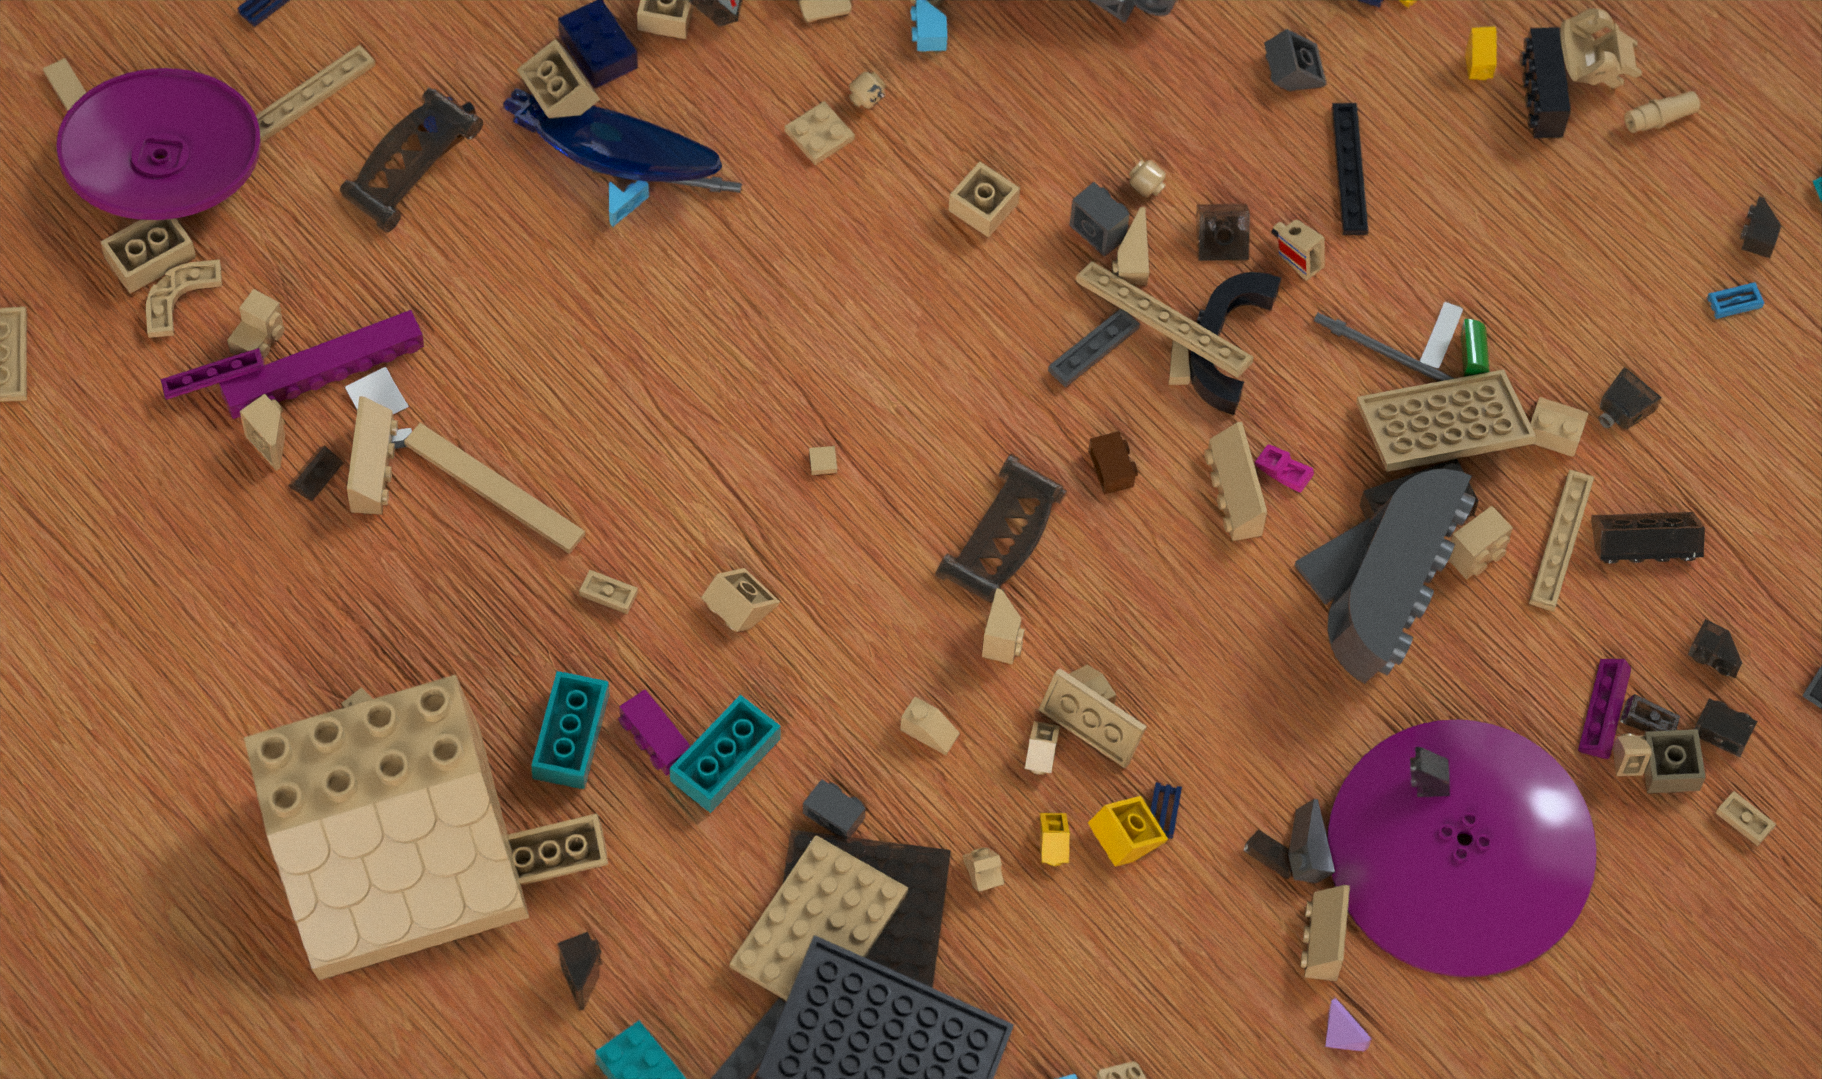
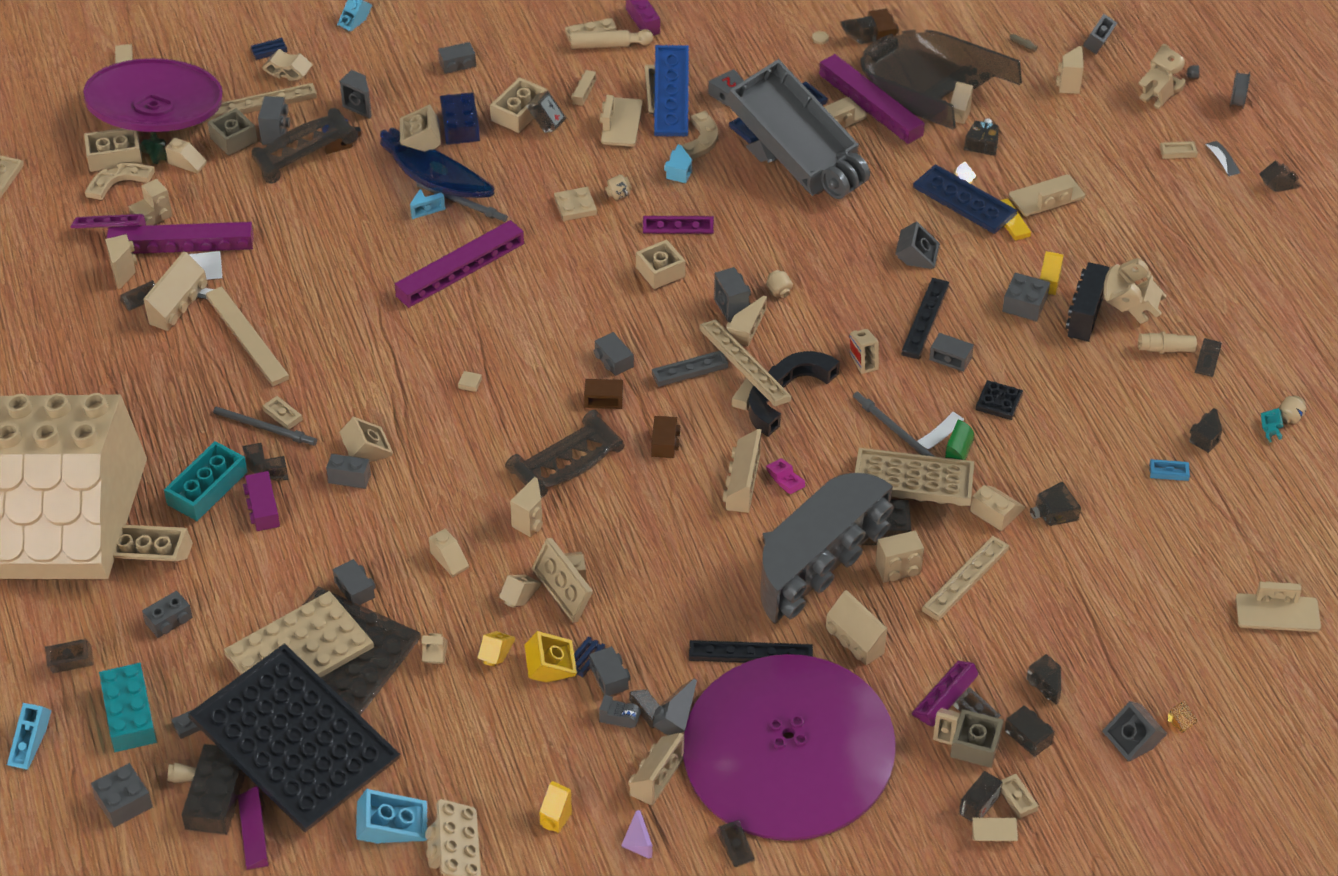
camera: 25 degrees right, 15 degrees down
(204, 229) = (154, 147): none -> clear green hips
(252, 227) = (184, 156): none -> tan slope
(299, 167) = (232, 131): none -> dark tan brick
(315, 27) = (287, 65): none -> tan brick
(349, 131) = (273, 119): none -> dark grey brick
(440, 49) = (355, 93): none -> dark grey slope
(540, 1040) = (69, 655): none -> clear smoke brick
(580, 965) = (123, 619): clear smoke slope -> none
(623, 681) = (257, 463): none -> clear smoke brick
(626, 936) = (167, 614): none -> dark grey brick
(645, 619) = (296, 436): none -> dark grey bar
(718, 282) = (459, 263): none -> magenta brick
(725, 753) = (299, 525): teal brick -> none
(742, 651) = (348, 471): none -> dark grey brick
(970, 124) = (678, 224): none -> magenta slope
(988, 358) = (614, 354): none -> dark grey brick
(1005, 423) = (603, 393): none -> reddish brown piece
(1207, 823) = (609, 671): none -> dark grey brick
(1222, 231) = (815, 328): clear smoke slope -> none
(1236, 1030) = (556, 807): none -> yellow slope
(1244, 874) = (618, 713): none -> dark grey leg
(1353, 734) = (742, 651): none -> black tile
(1407, 213) = (951, 352): none -> dark grey brick
(1429, 773) = (779, 678): clear smoke slope -> none
(1456, 996) = (735, 843): none -> clear smoke slope
(1463, 97) = (1026, 296): none -> dark grey brick
(1472, 661) = (857, 628): none -> tan slope
(1492, 265) = (999, 400): none -> black tile
(1648, 536) = (1029, 593): clear smoke slope -> none
(1707, 837) = (980, 796): none -> clear smoke brick
(1717, 116) = (1208, 357): none -> clear smoke slope
(1739, 872) = (994, 829): none -> tan slope

